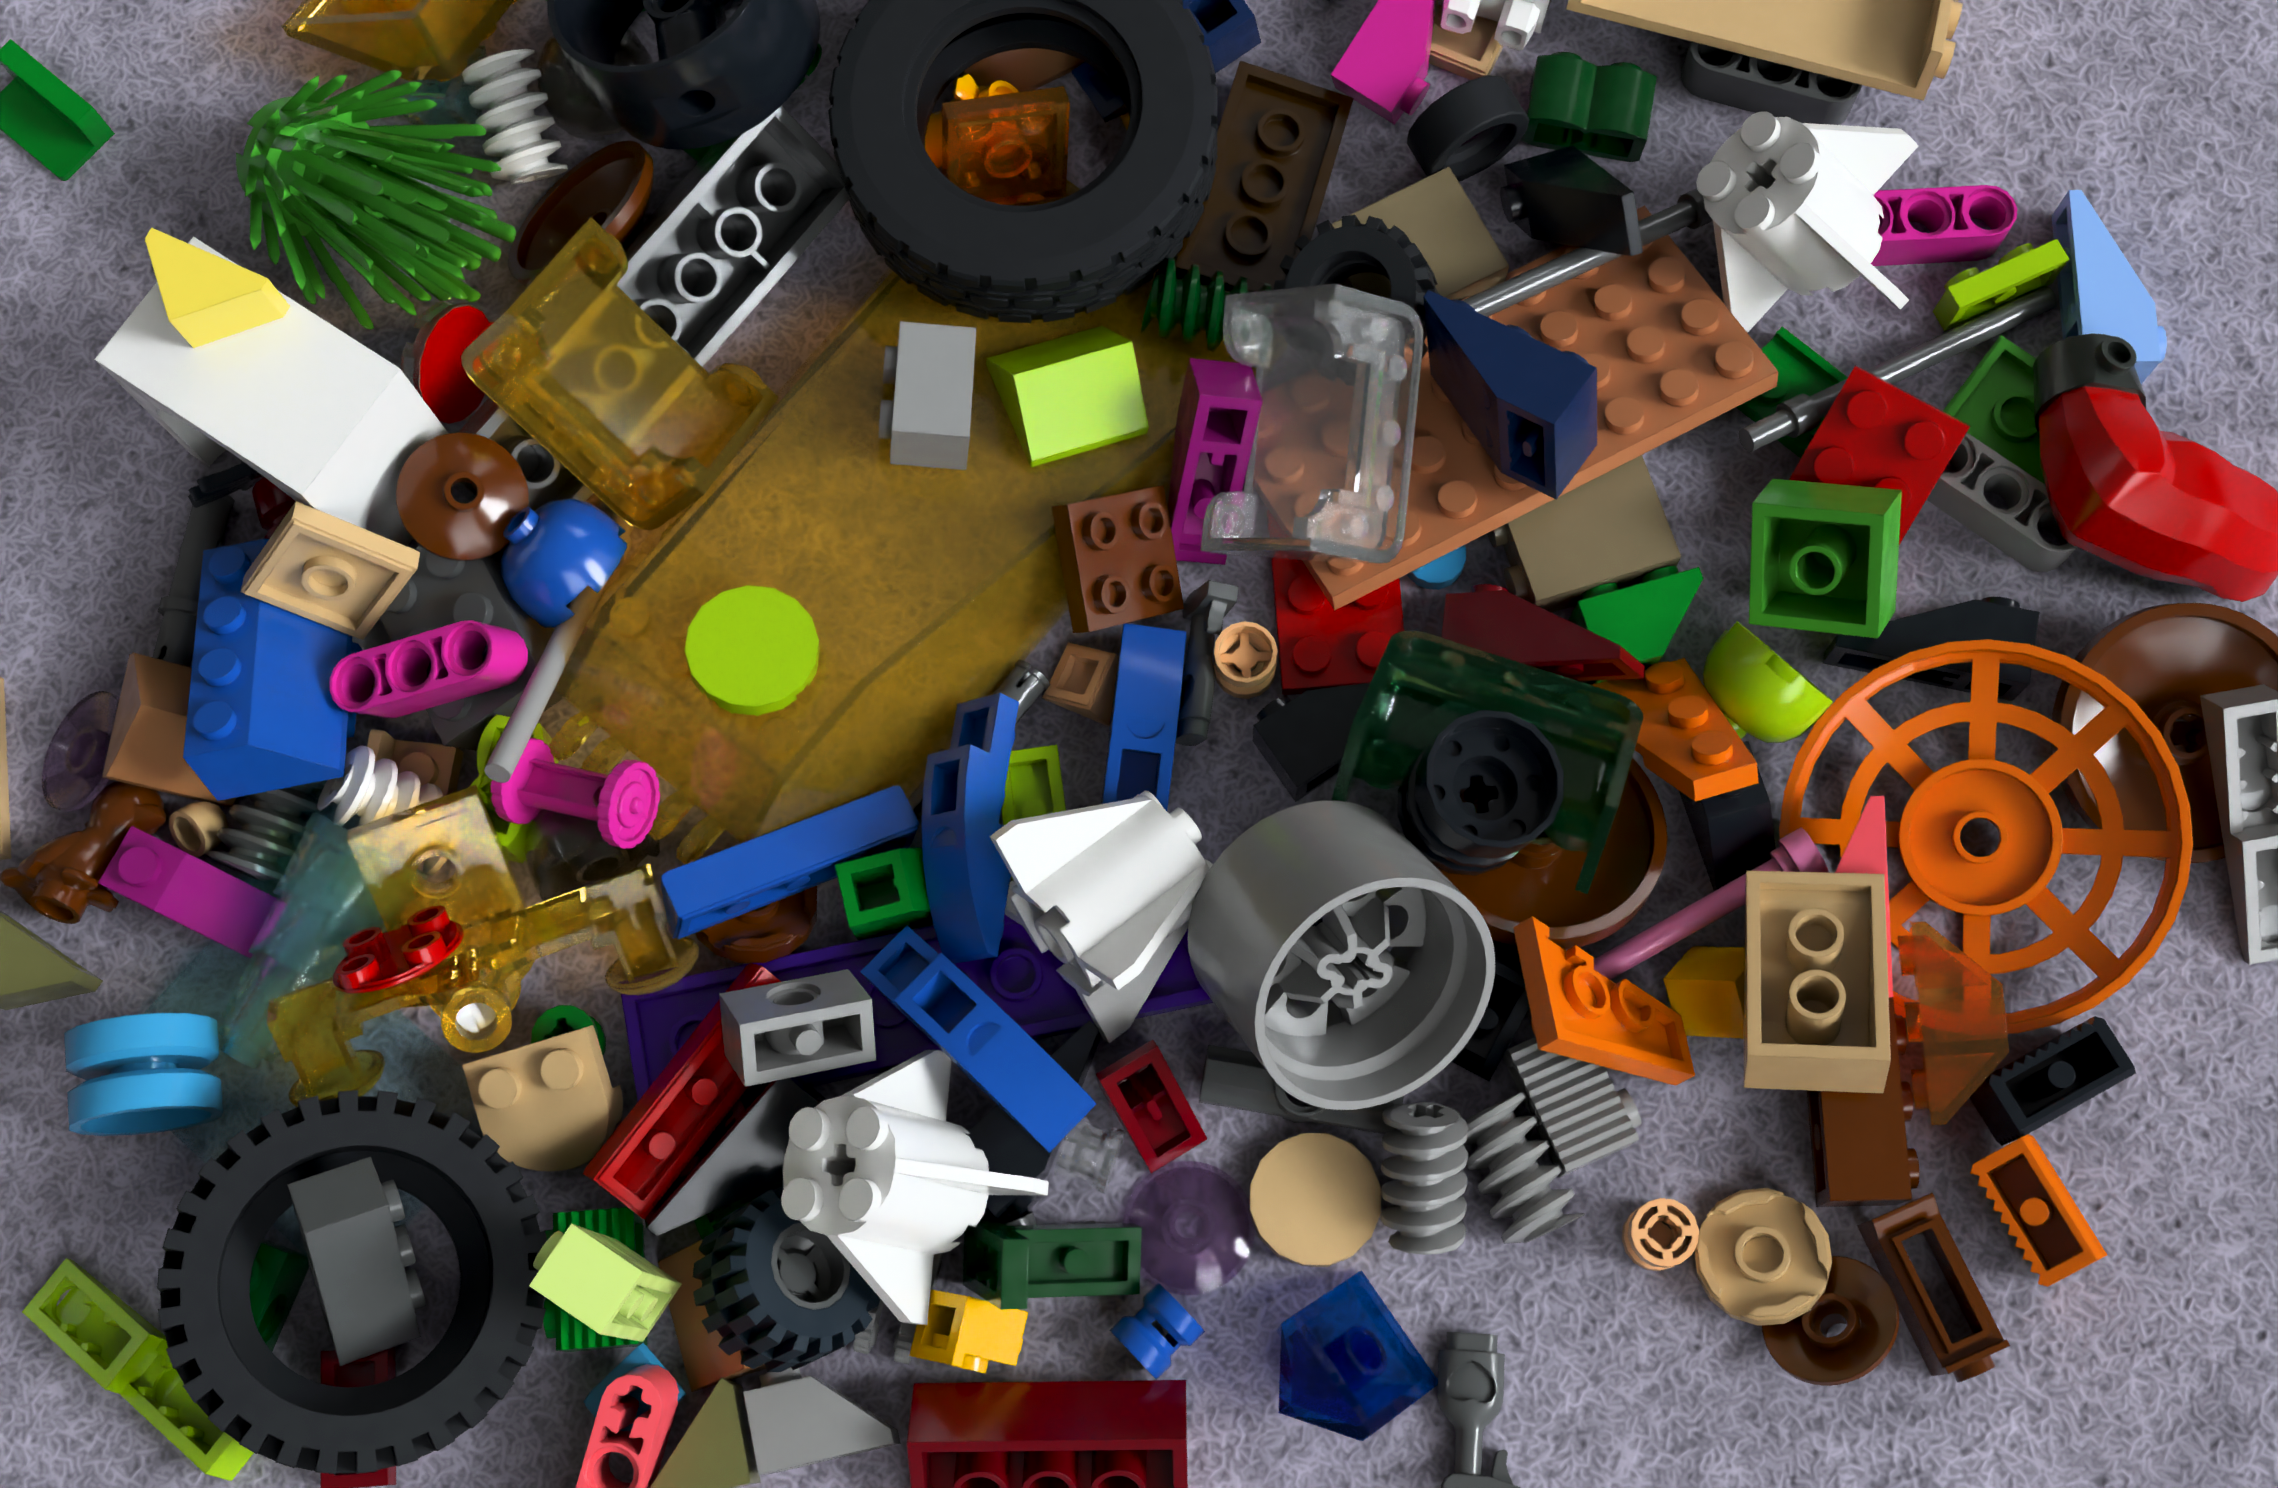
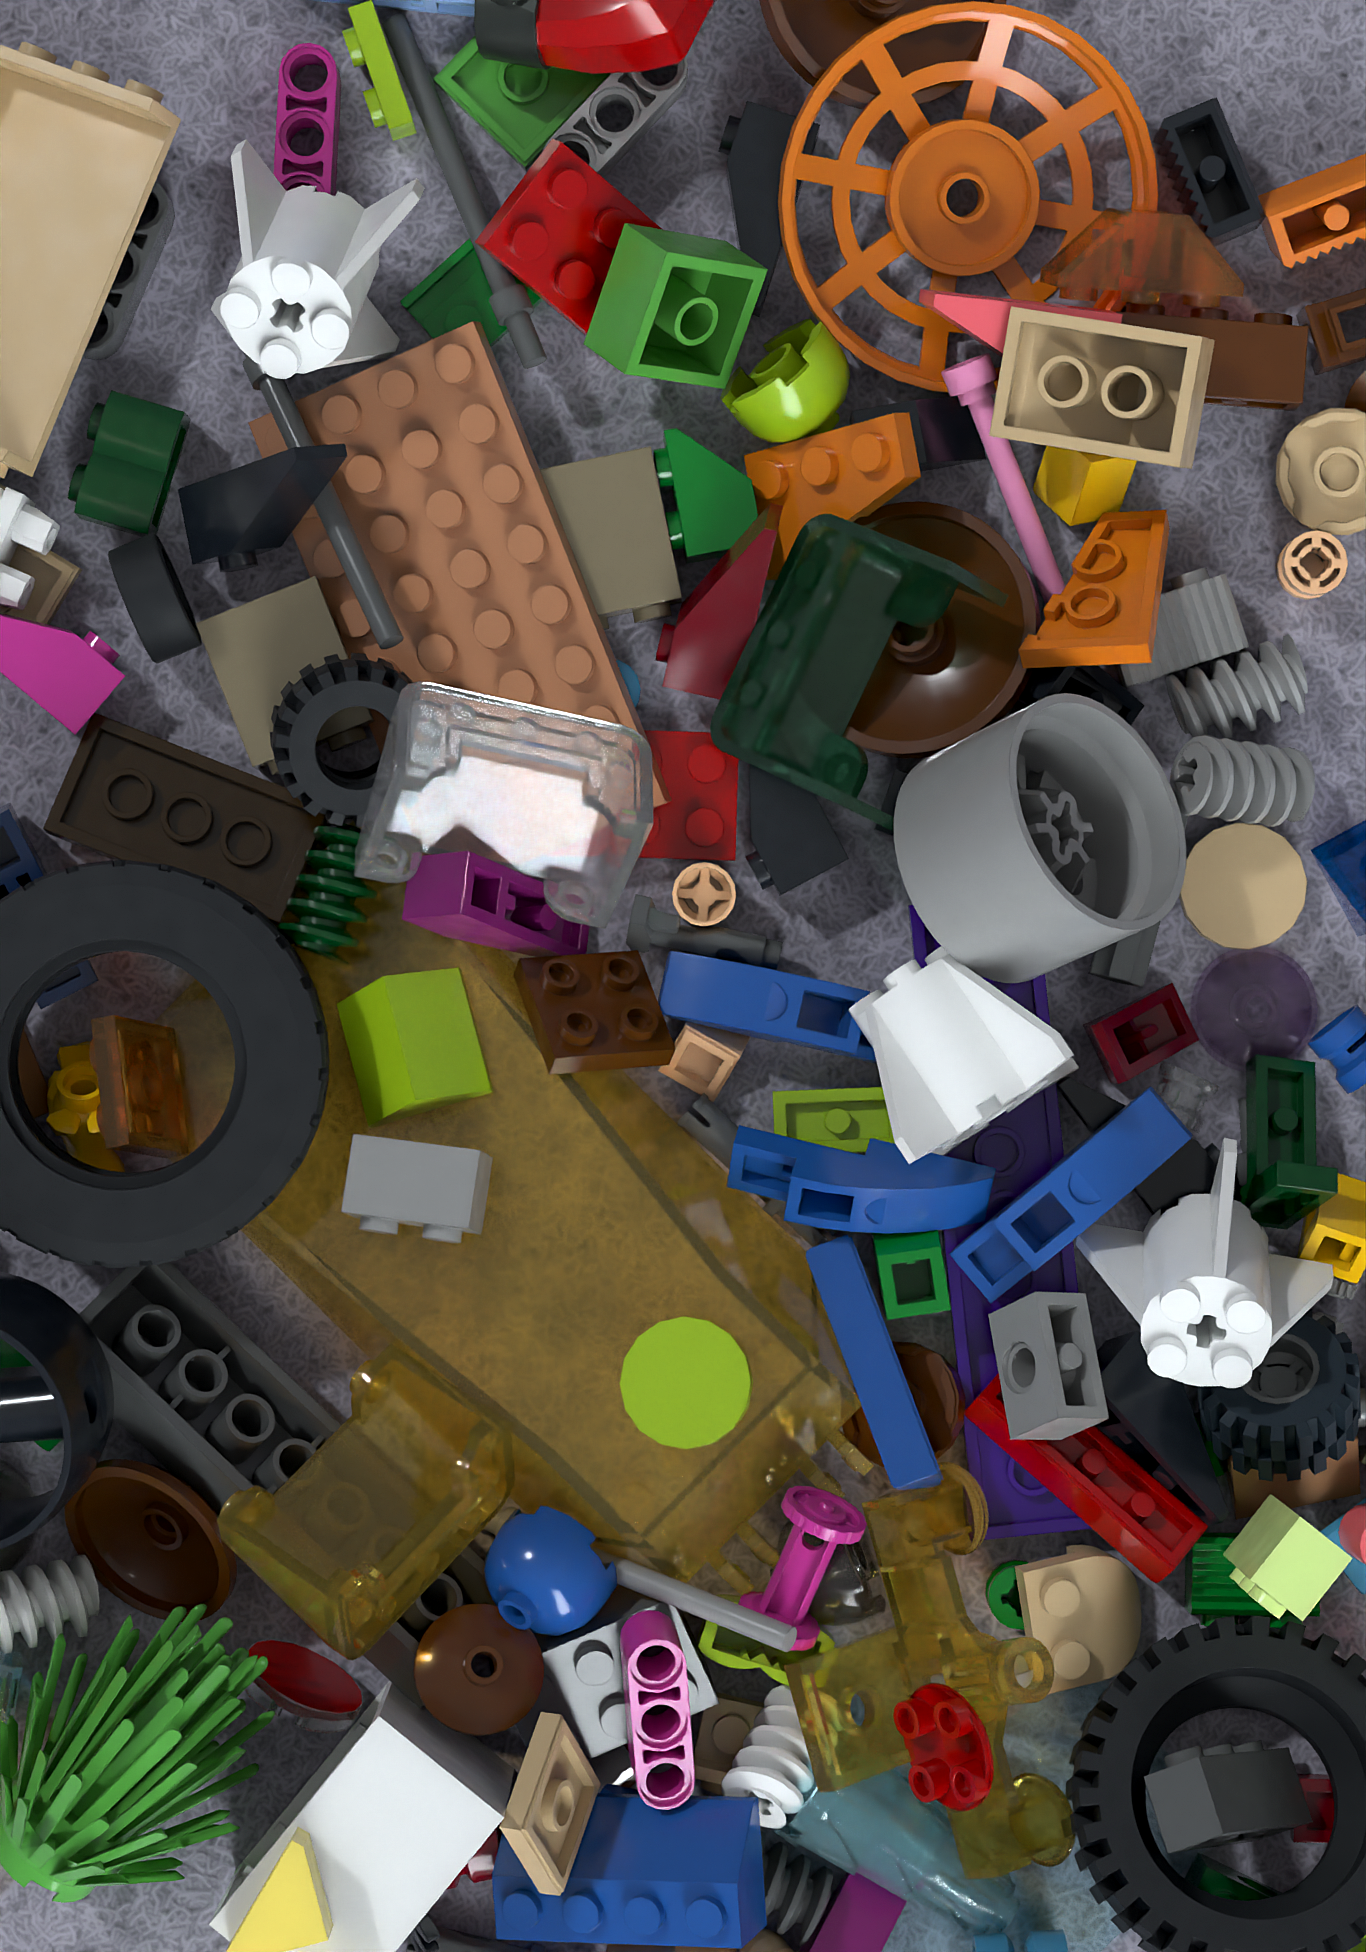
camera: 90 degrees left, 15 degrees up
(1499, 766) = (906, 649): black wheel -> none
(1516, 394) = (506, 583): dark blue slope -> none

